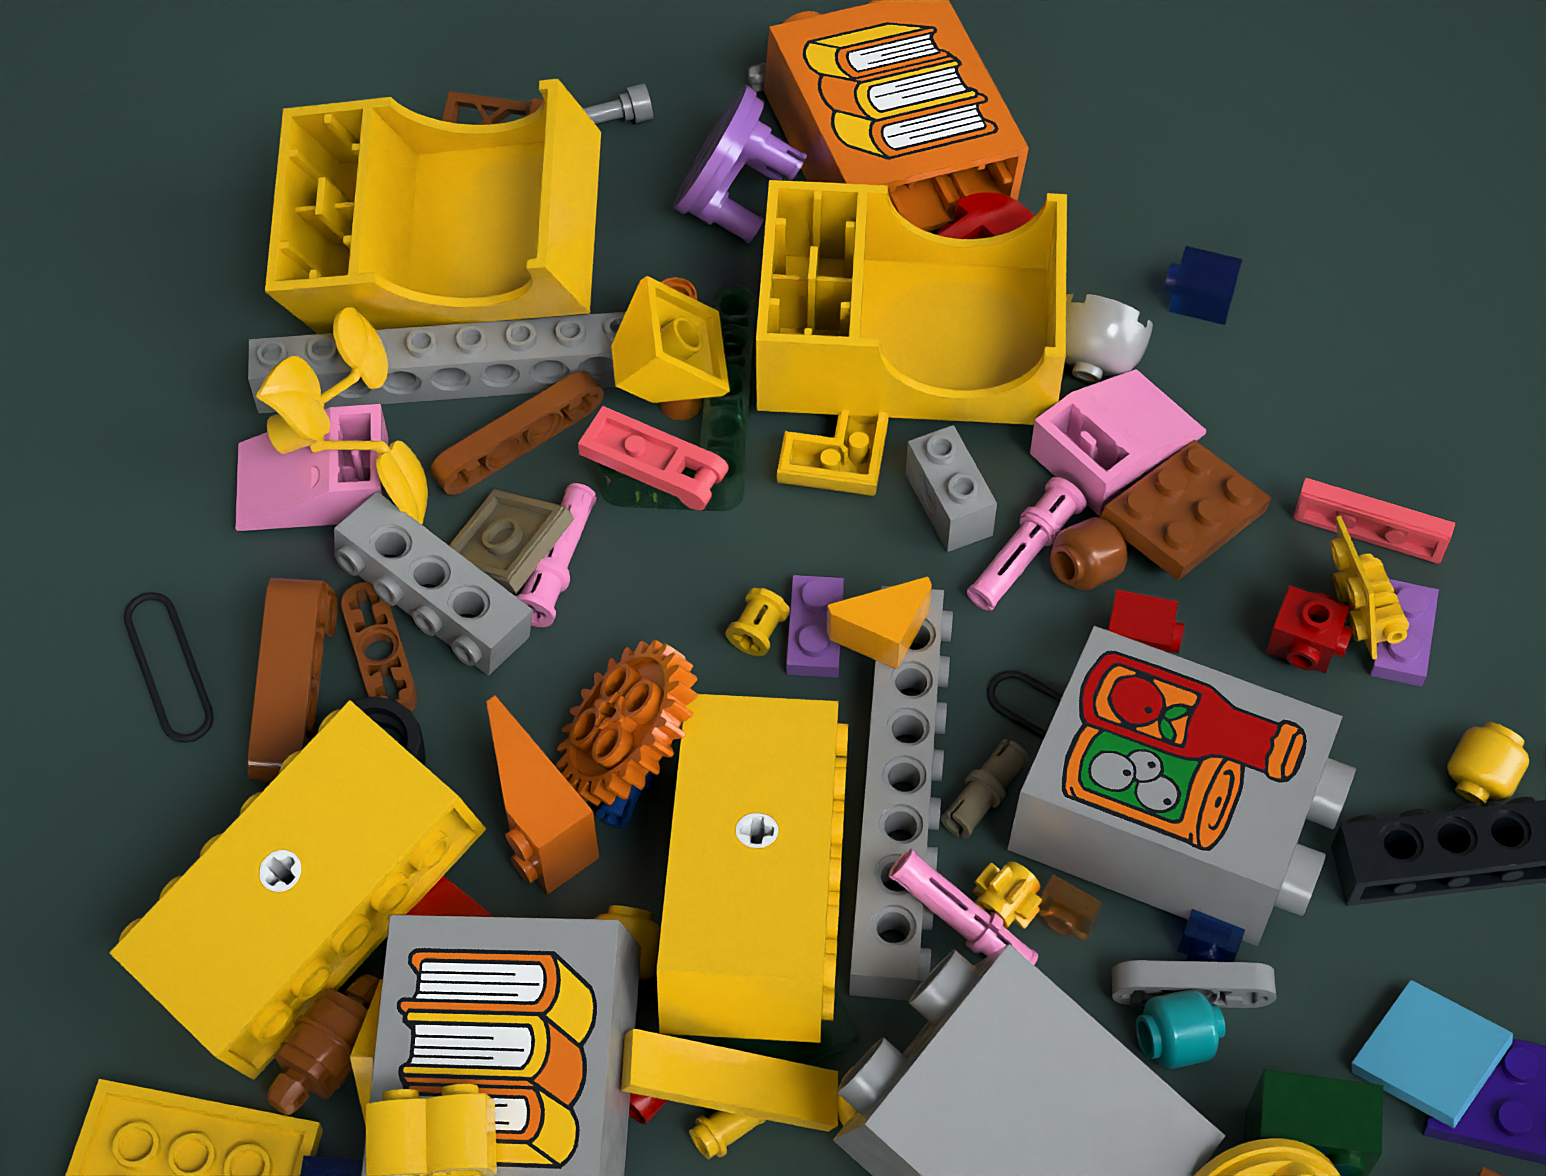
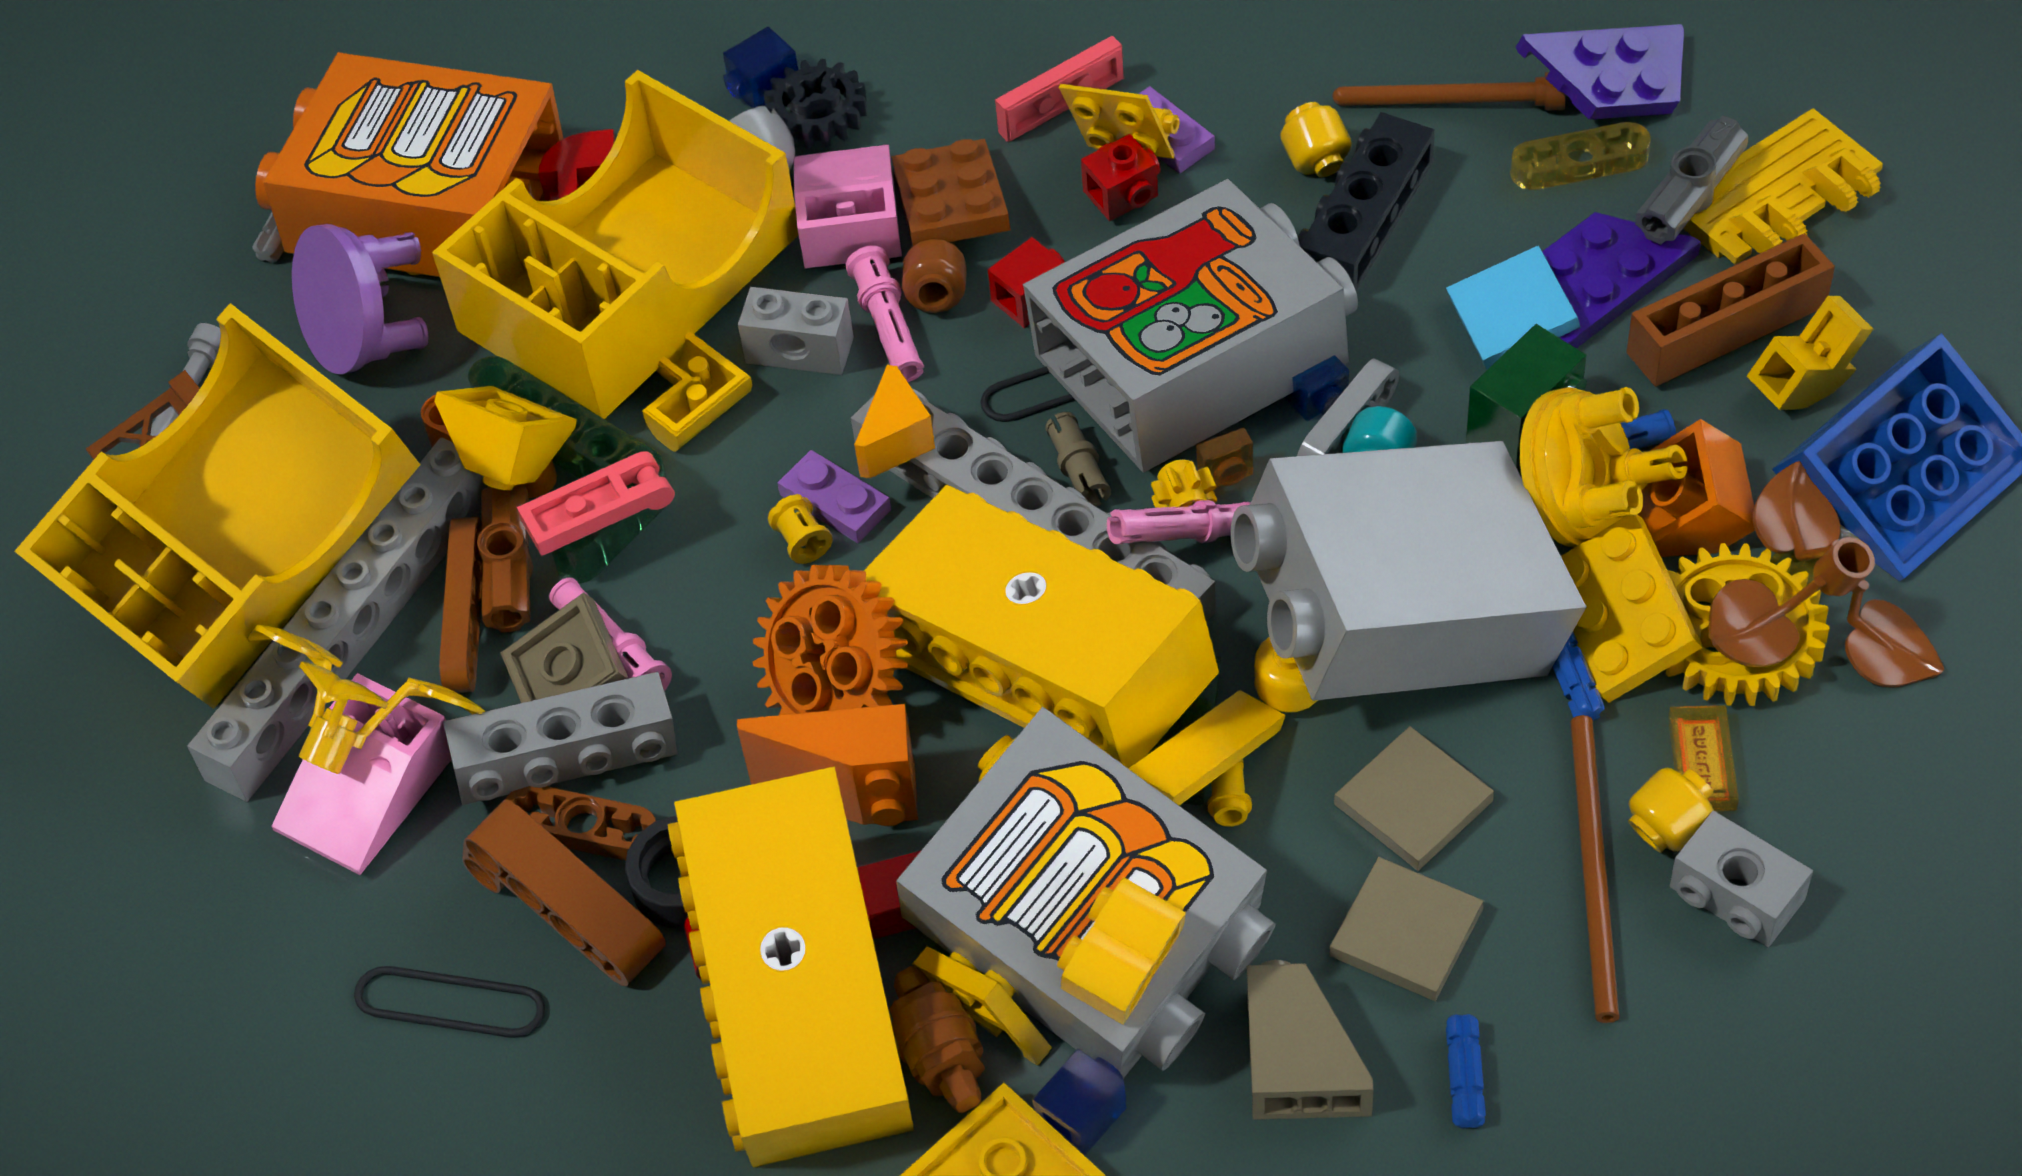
camera: 50 degrees left, 5 degrees down
(557, 445) = (504, 559): none -> dark orange piece
(1196, 348) = (817, 103): none -> black gear

